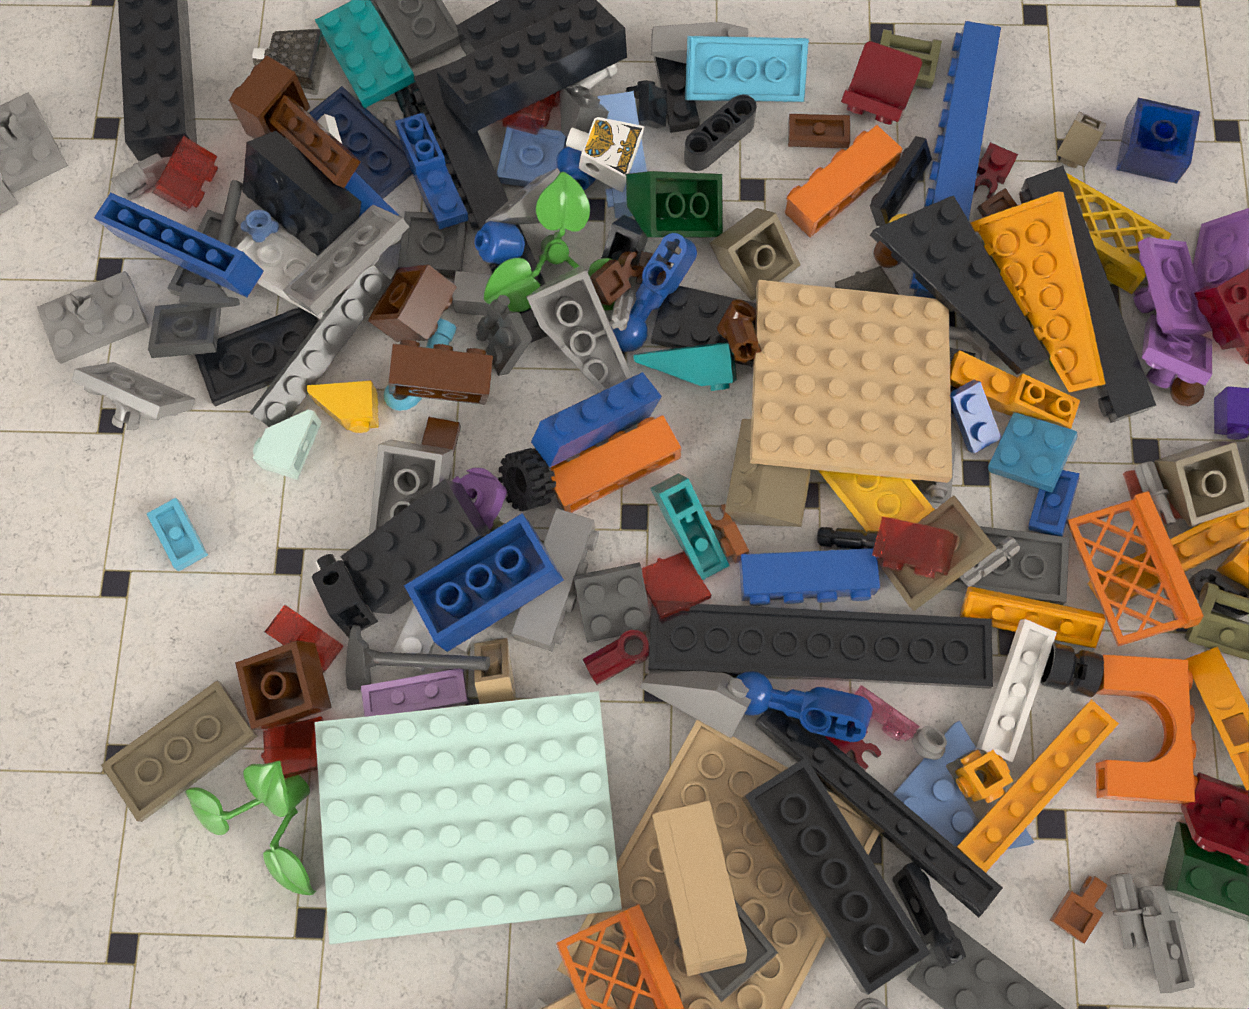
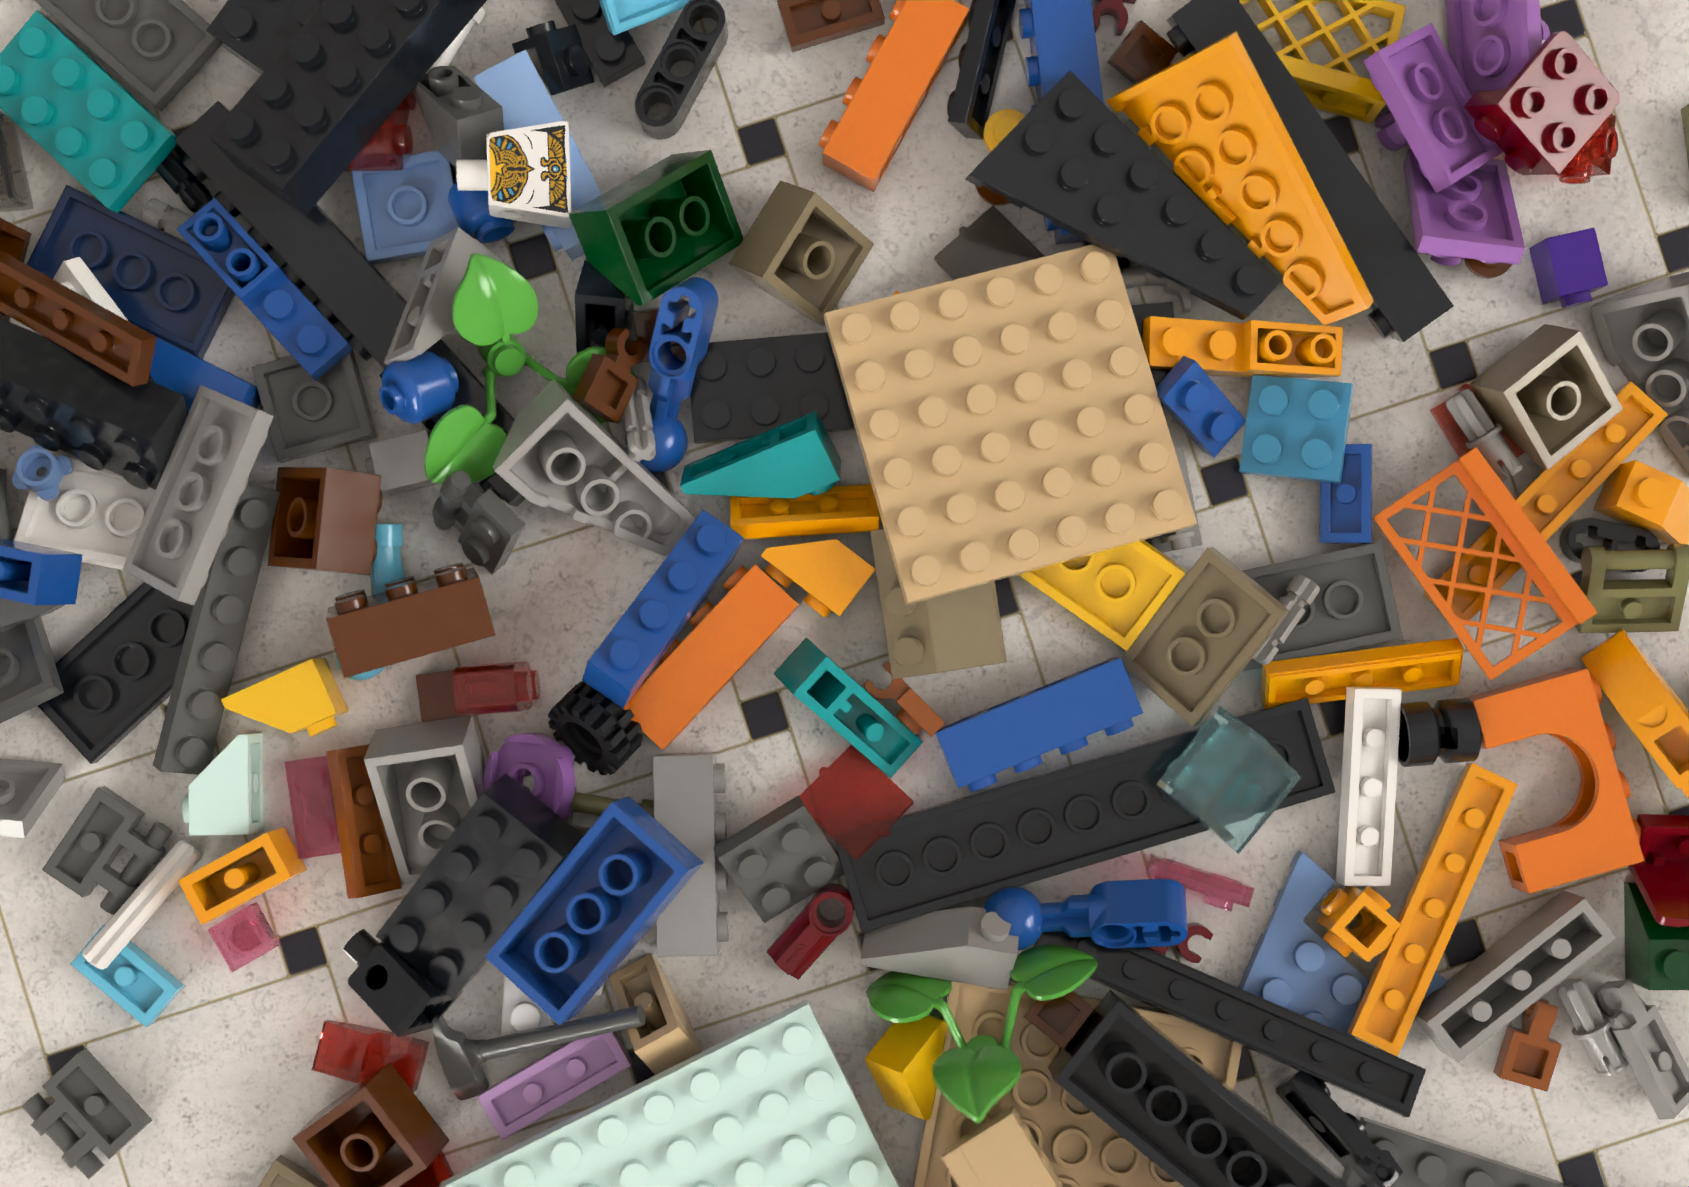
camera: 20 degrees left, 15 degrees up
(122, 609) = (95, 1104): none -> dark grey plate
(192, 449) = (94, 843): none -> dark grey plate
(205, 493) = (141, 905): none -> white axle
(258, 536) = (244, 937): none -> clear pink plate
(274, 494) = (242, 875): none -> light orange brick
(336, 475) = (312, 807): none -> clear pink plate
(357, 496) = (361, 832): none -> dark orange plate
(474, 434) = (495, 688): none -> clear red brick
(648, 766) = (904, 1064): none -> yellow slope
(702, 767) = (982, 1069): none -> bright green plant
(703, 400) = (834, 511): none -> light orange plate
(703, 436) = (823, 569): none -> light orange slope
(739, 330) = (822, 400): reddish brown piece -> none
(761, 762) = (1060, 1017): none -> reddish brown plate
(846, 538) = (1078, 649): black axle -> none
(914, 546) = (1175, 646): clear red brick -> none
(924, 648) = (1229, 779): none -> clear light blue slope
(929, 743) = (1274, 903): light grey plate -> none
(1081, 849) = (1513, 974): none -> light grey brick

